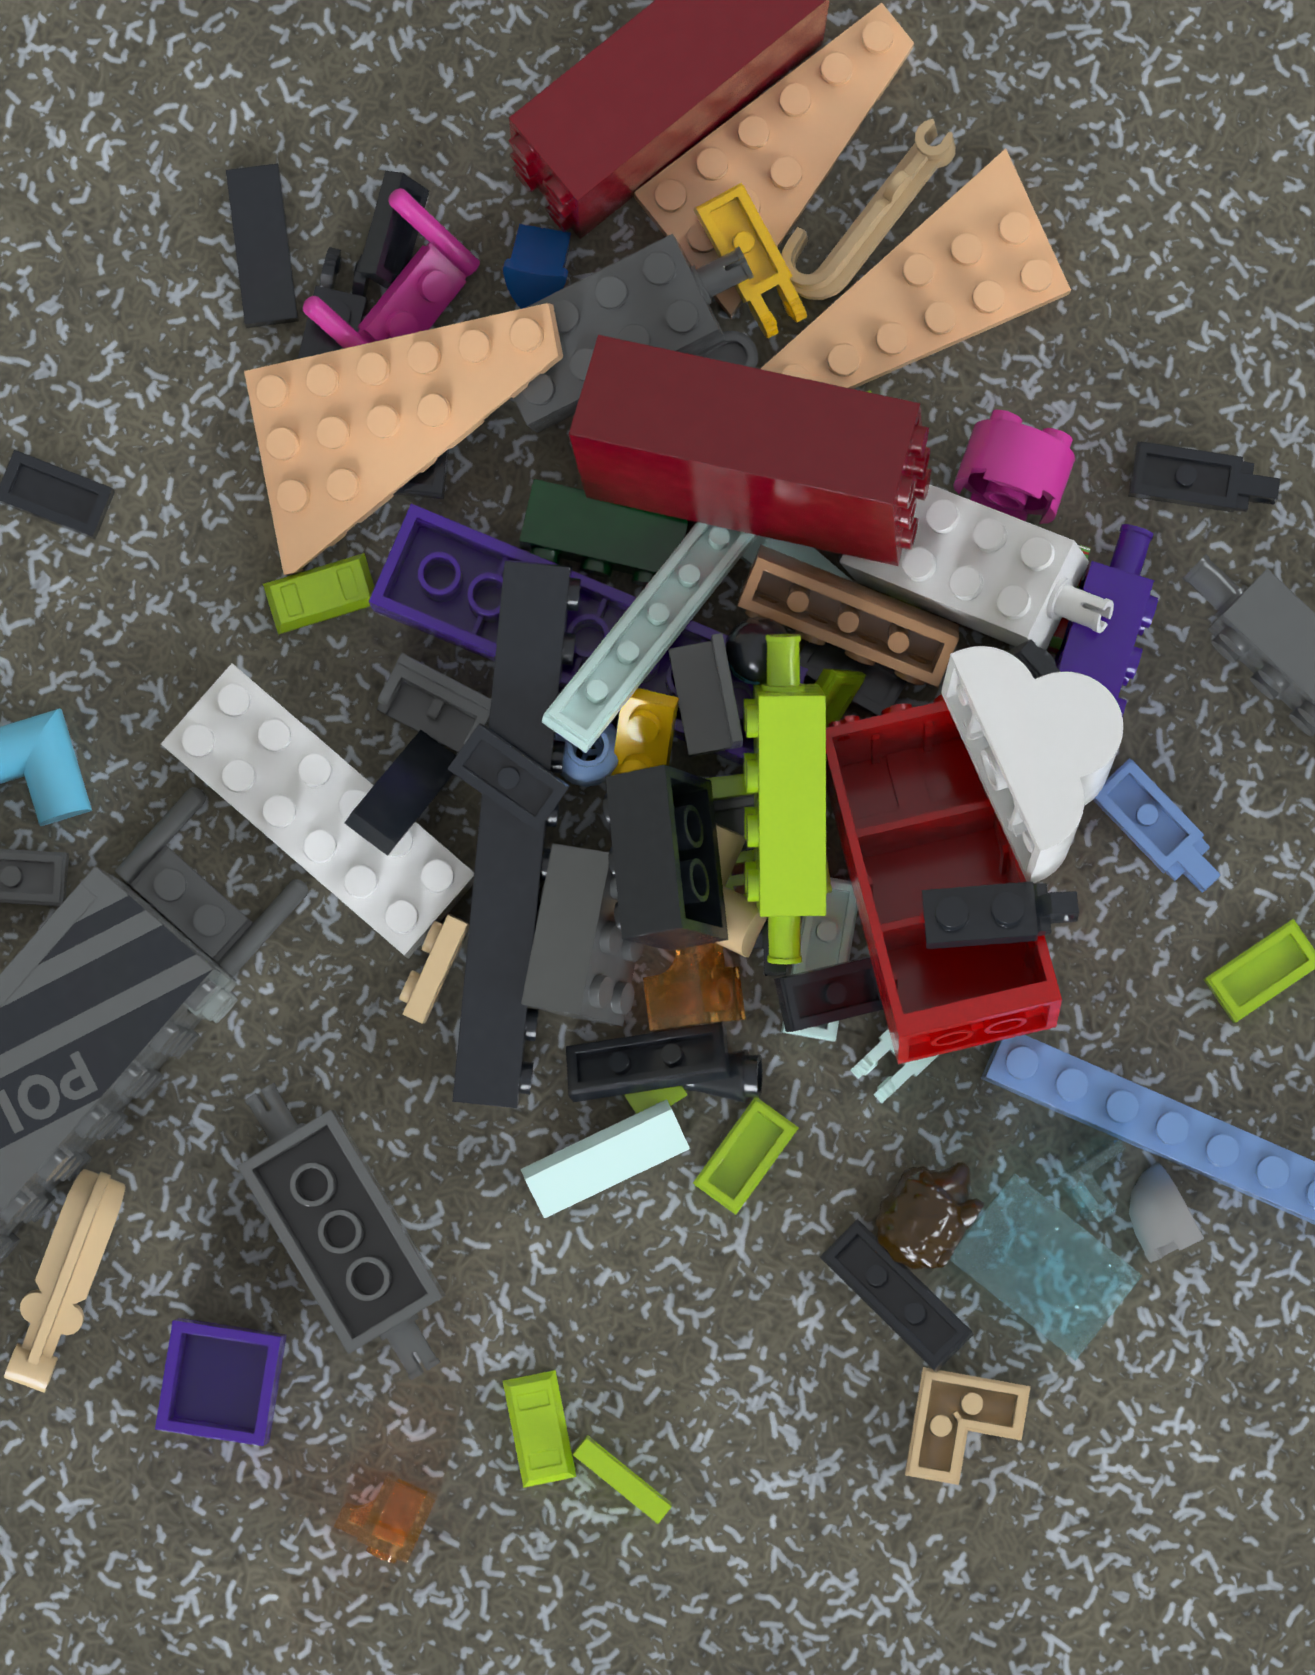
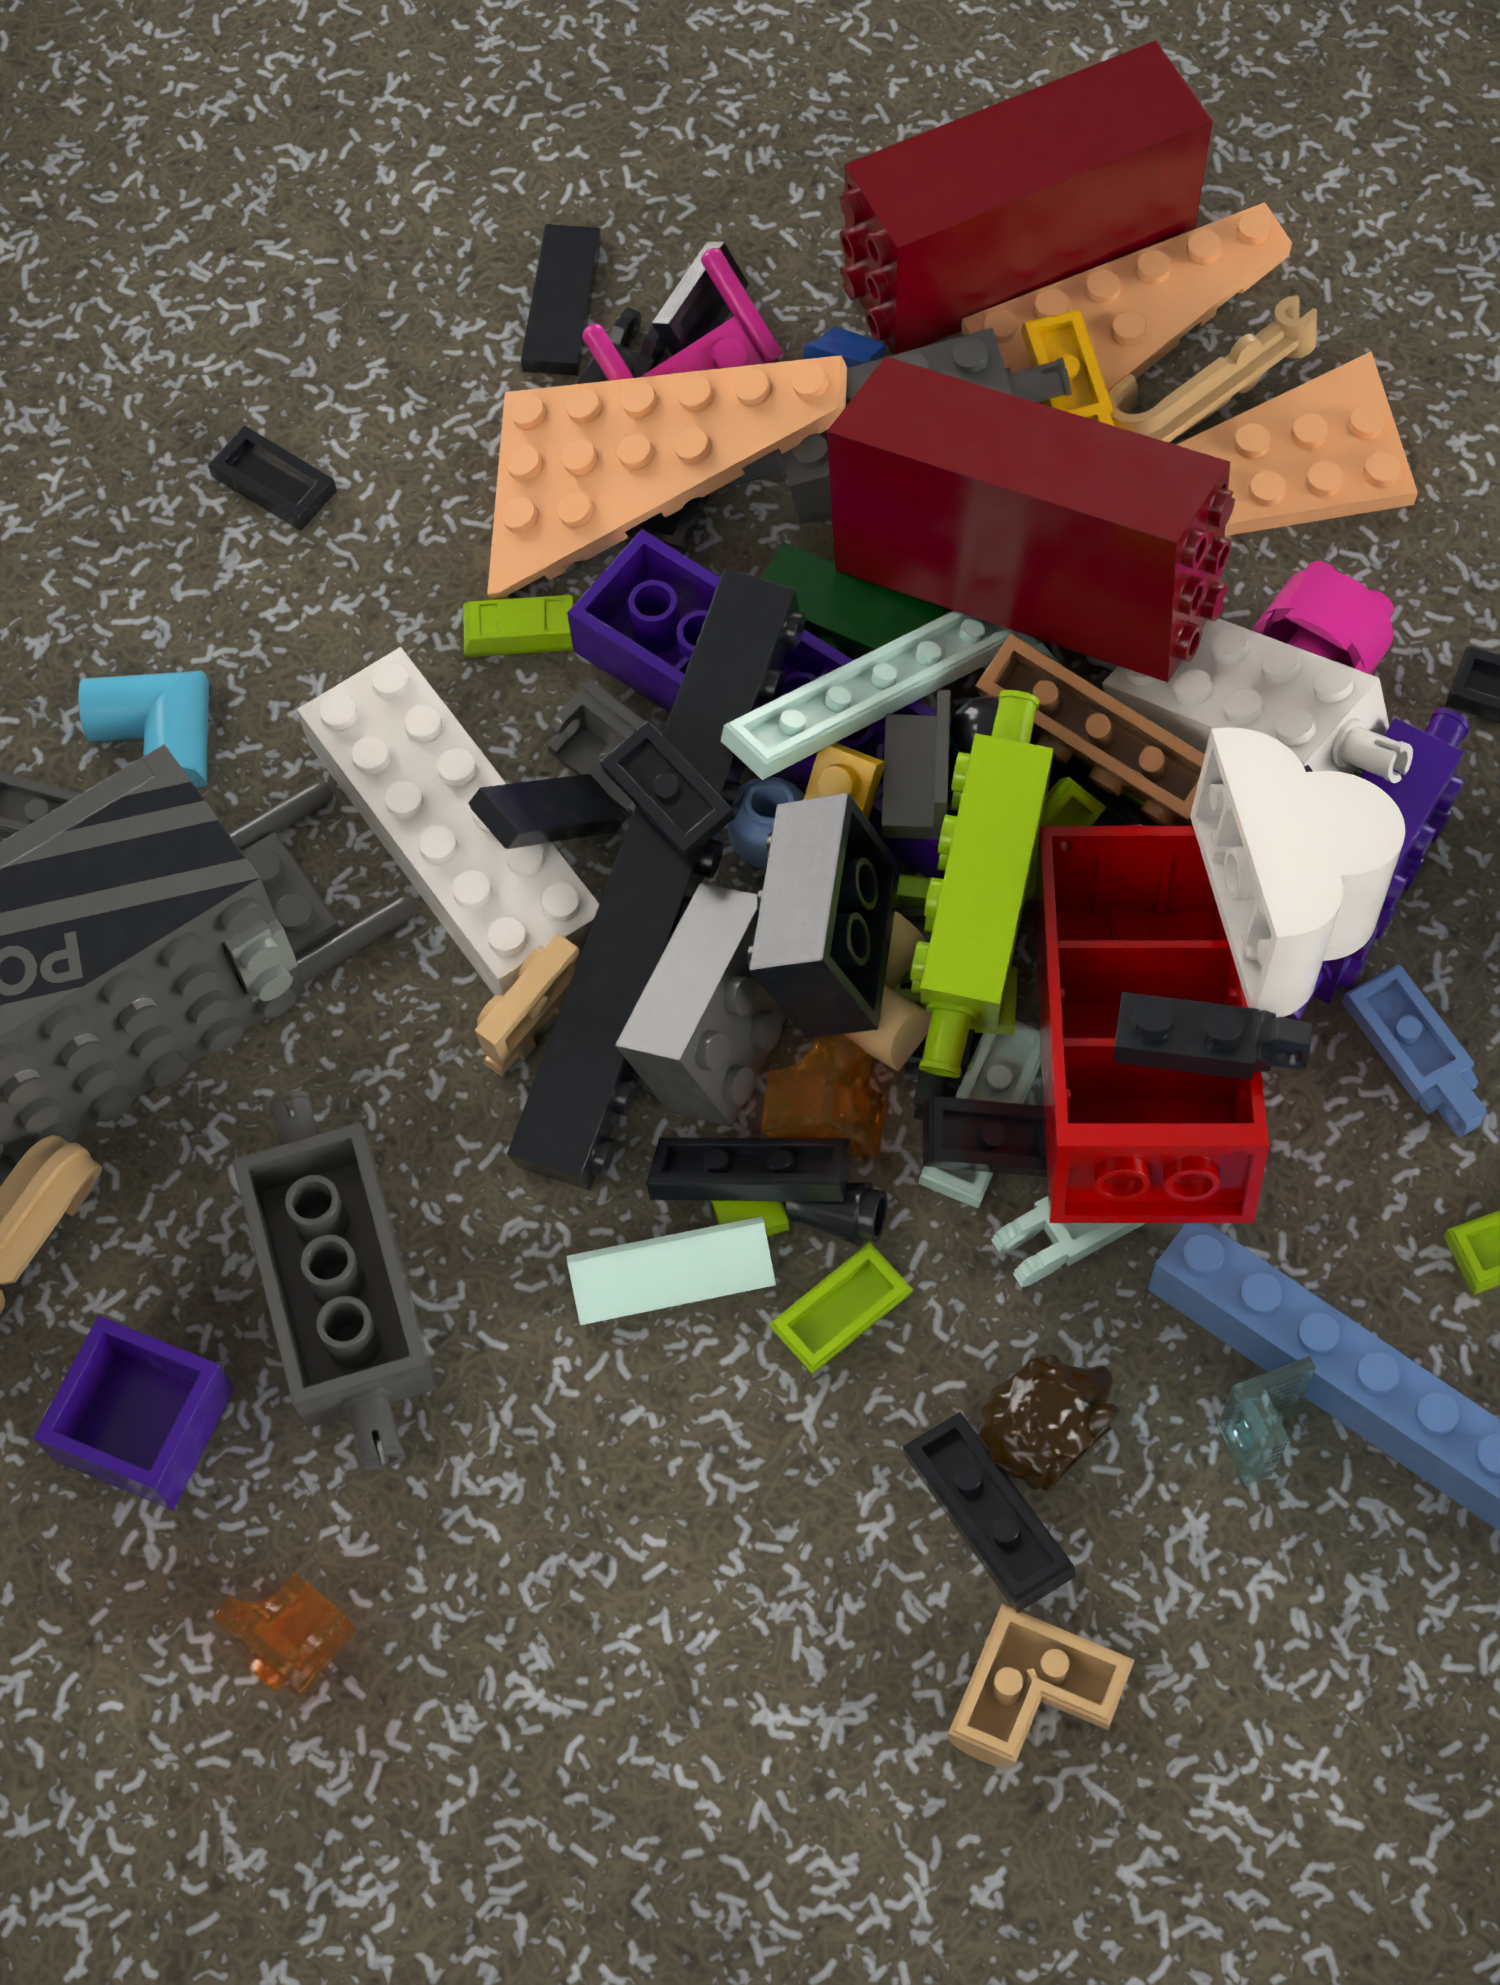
camera: 20 degrees right, 20 degrees down
(539, 1428) = (504, 1577): lime tile -> none
(622, 1479) = (588, 1655): lime tile -> none
(1044, 1266) = (1182, 1523): clear light blue plate -> none
(1161, 1215) = (1345, 1498): light grey brick -> none

